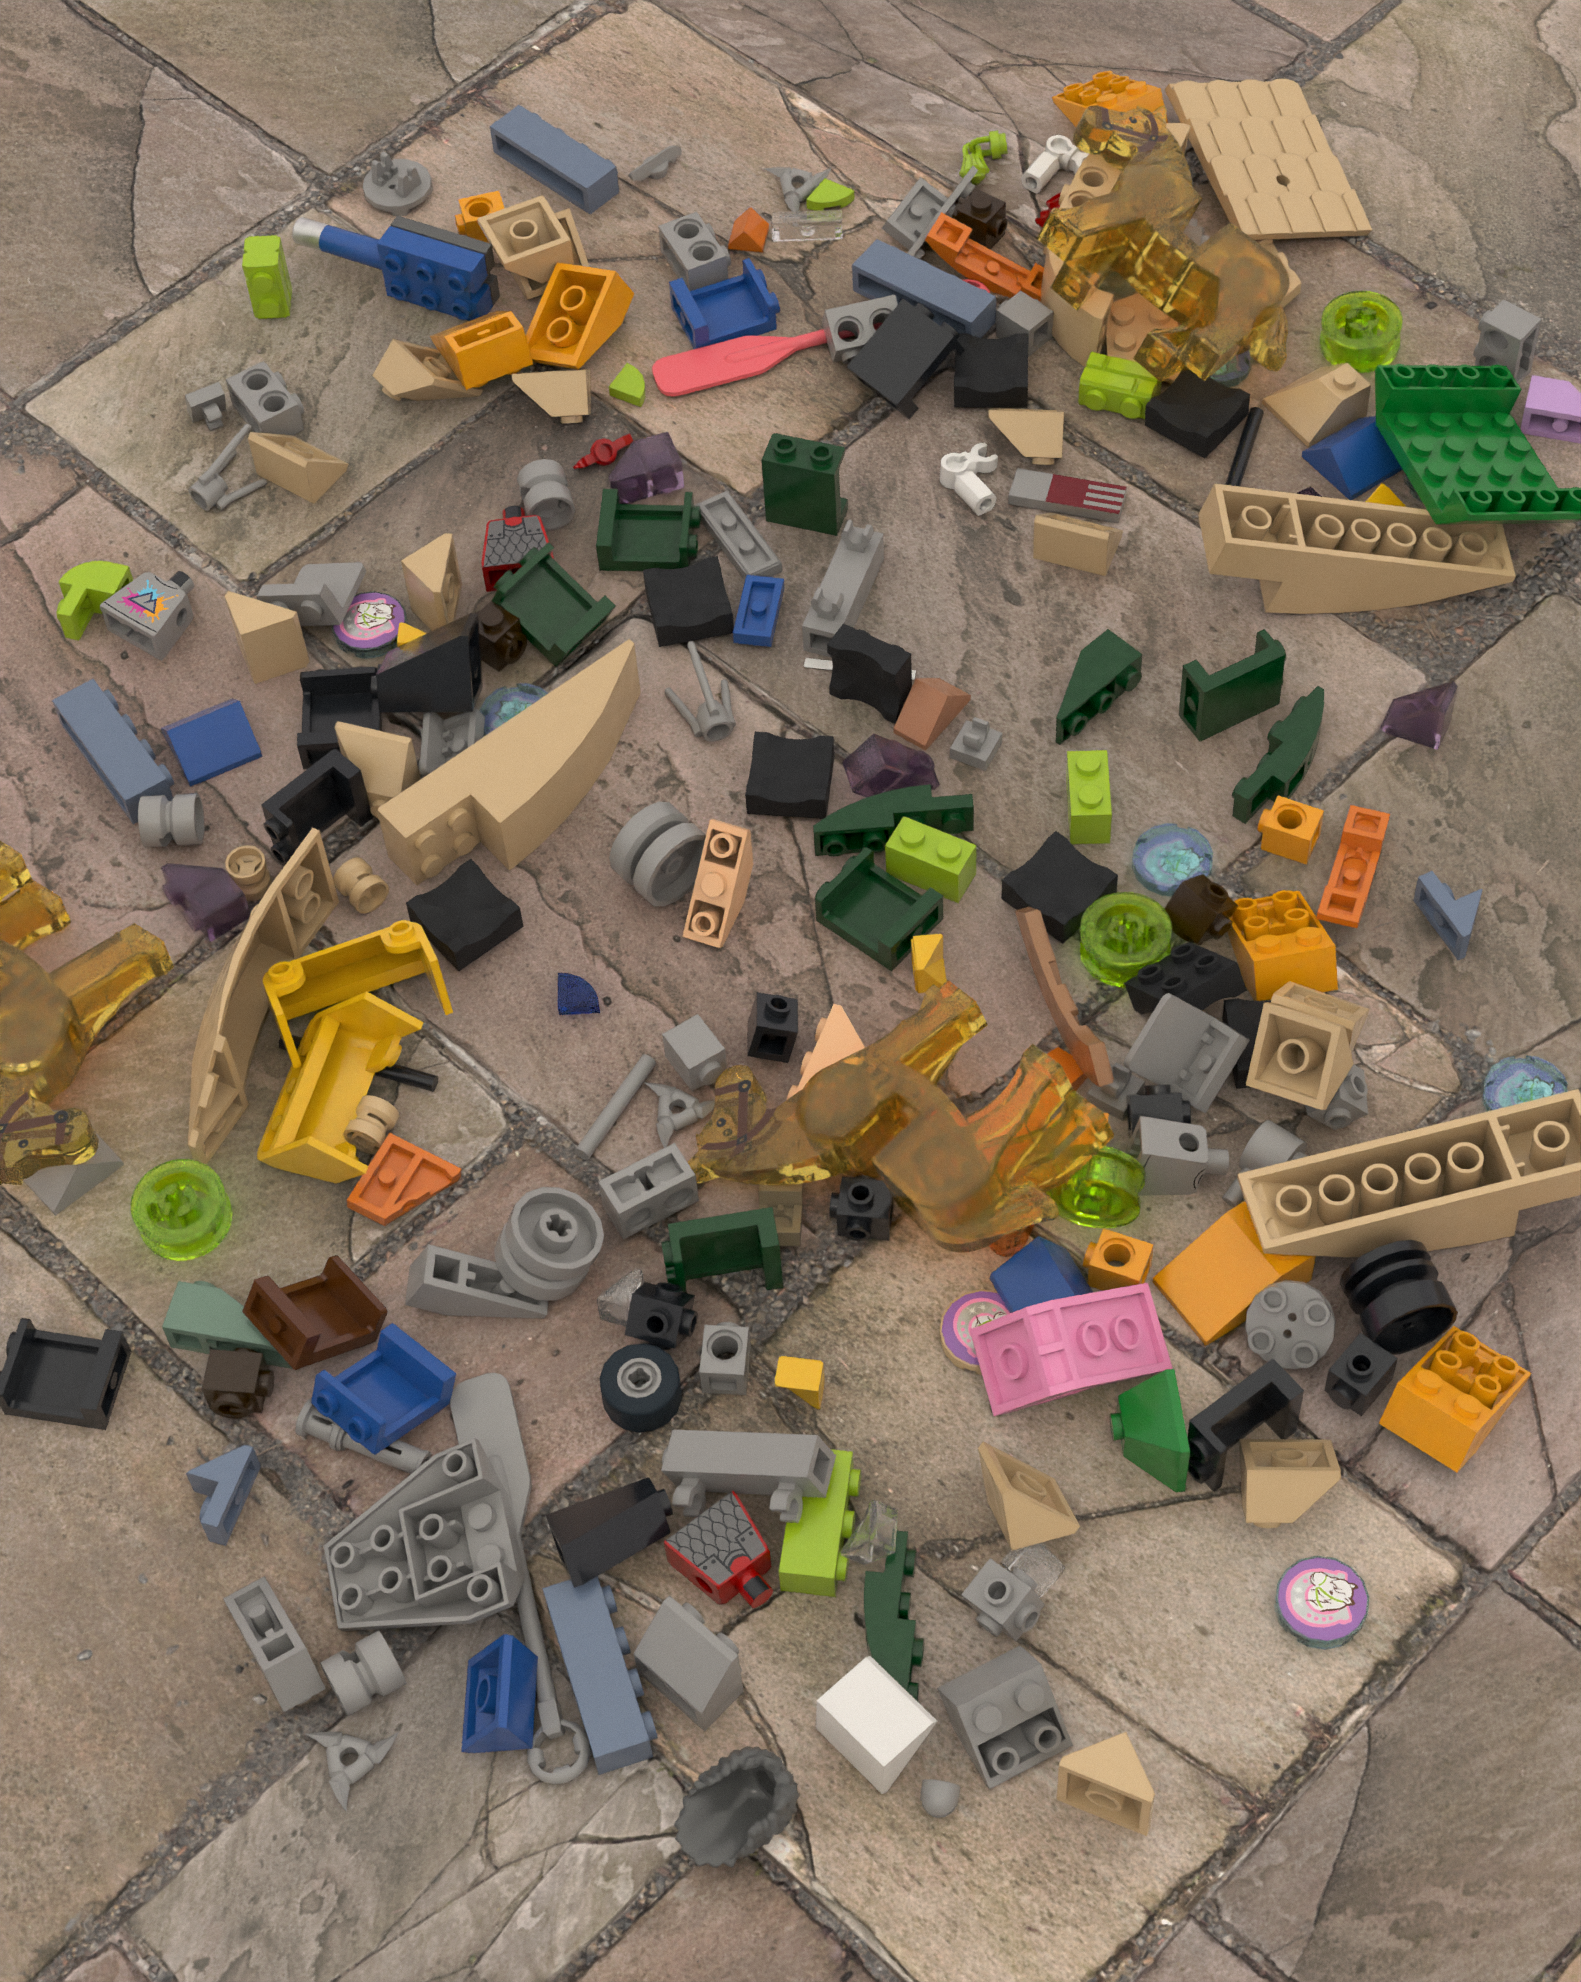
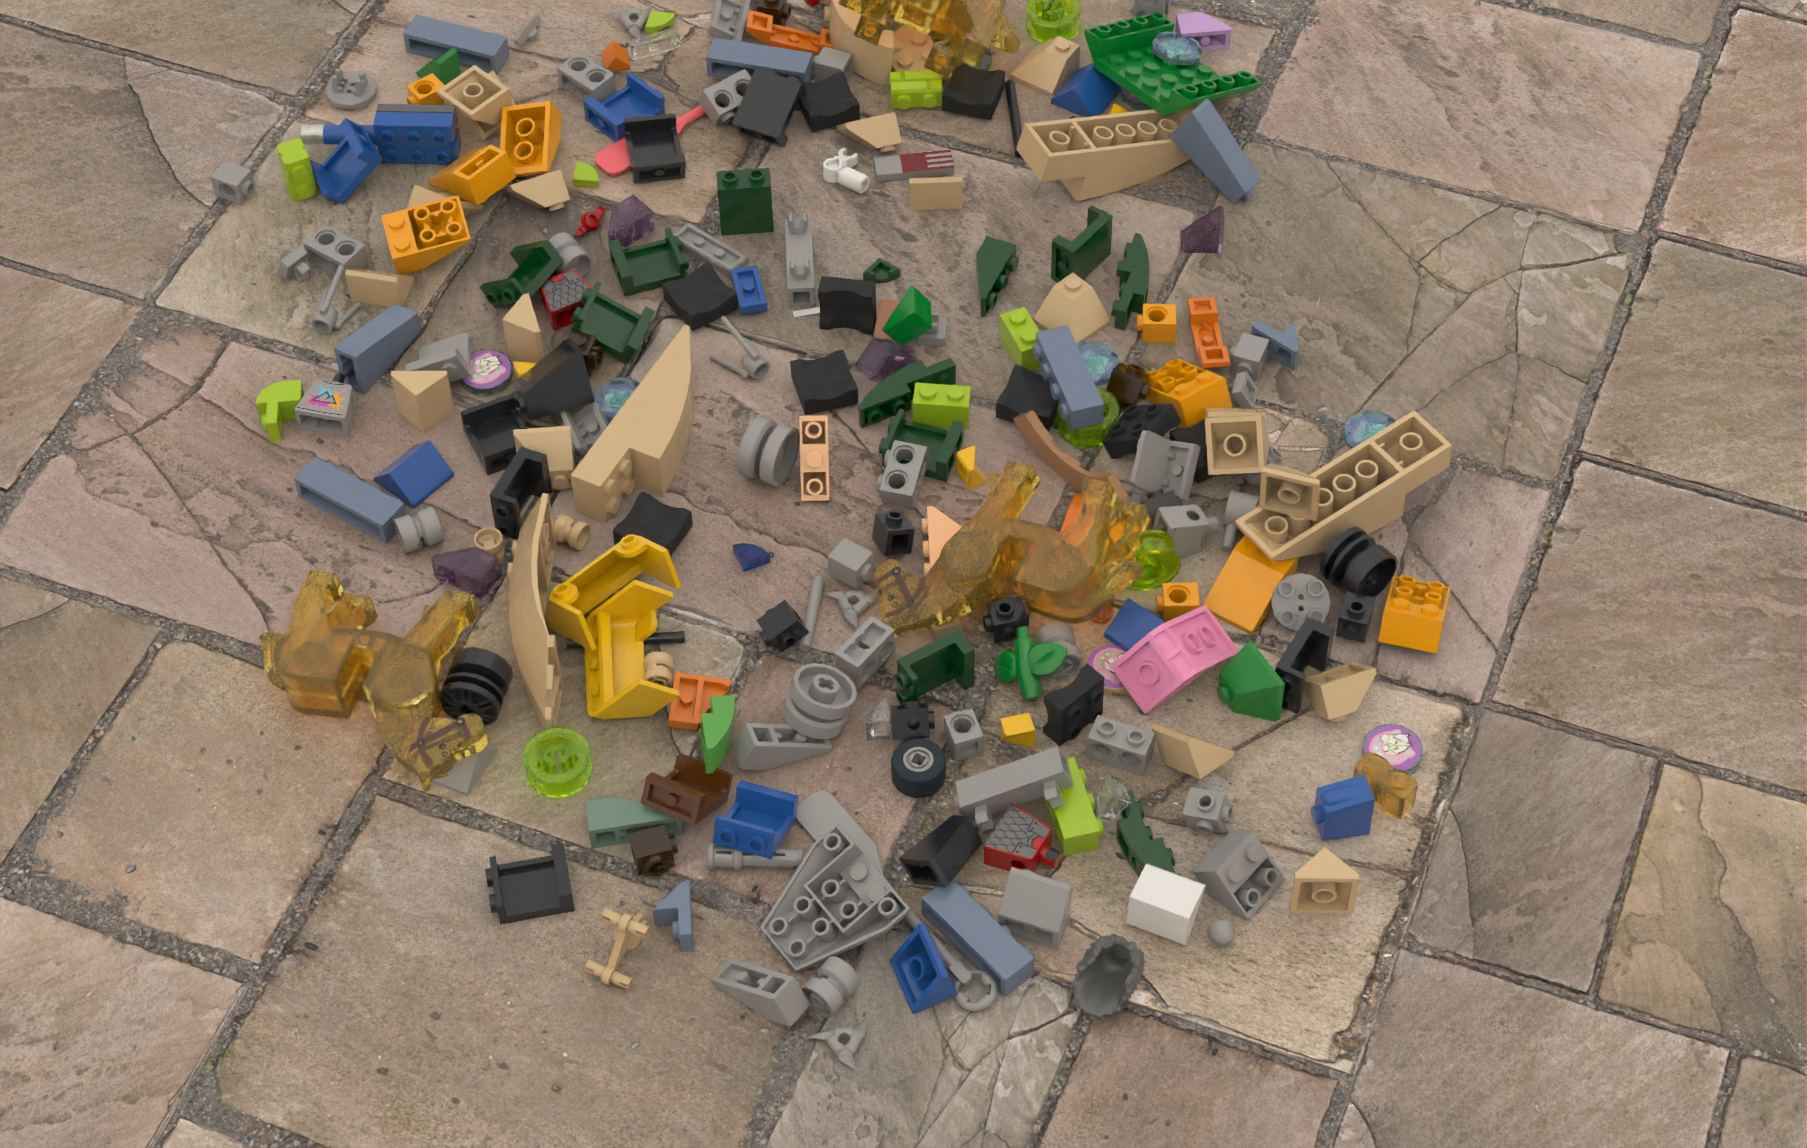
camera: 25 degrees left, 5 degrees down
(125, 1067) = (476, 684): none -> black wheel
(130, 1497) = (627, 935): none -> tan axle
(189, 271) = (233, 182): none -> light grey brick
(246, 547) = (376, 346): none -> sand blue slope
(334, 288) = (347, 164): none -> blue panel
(376, 410) = (425, 233): none -> light orange slope
(396, 1241) = (717, 731): none -> bright green slope
(500, 494) = (535, 266): none -> dark green panel
(519, 185) = (444, 67): none -> green slope
(560, 1114) = (782, 627): none -> black brick
(731, 374) = (654, 148): none -> black panel
(838, 948) = (908, 474): none -> light grey brick
(861, 1286) = (1029, 663): none -> green plant
(890, 1373) = (1074, 706): none -> black brick
(914, 1279) = (1063, 635): none -> light grey wheel
(931, 1454) = (1120, 745): none -> light grey brick
(946, 716) = (909, 318): none -> green slope
(949, 637) = (881, 272): none -> dark green tile
(1114, 876) = (1068, 377): none -> sand blue brick
(1178, 775) = (1073, 304): none -> tan slope
(1195, 1673) = (1343, 809): none -> blue torso
(1272, 1647) = (1391, 787): none -> clear yellow brick
(1324, 1155) = (1289, 492): none -> tan slope
(1364, 971) = (1243, 391): none -> light grey tile
(1397, 920) = (1249, 355): none -> light grey brick
(1485, 600) = (1216, 152): none -> sand blue slope
(1506, 427) = (1175, 49): none -> clear light blue tile

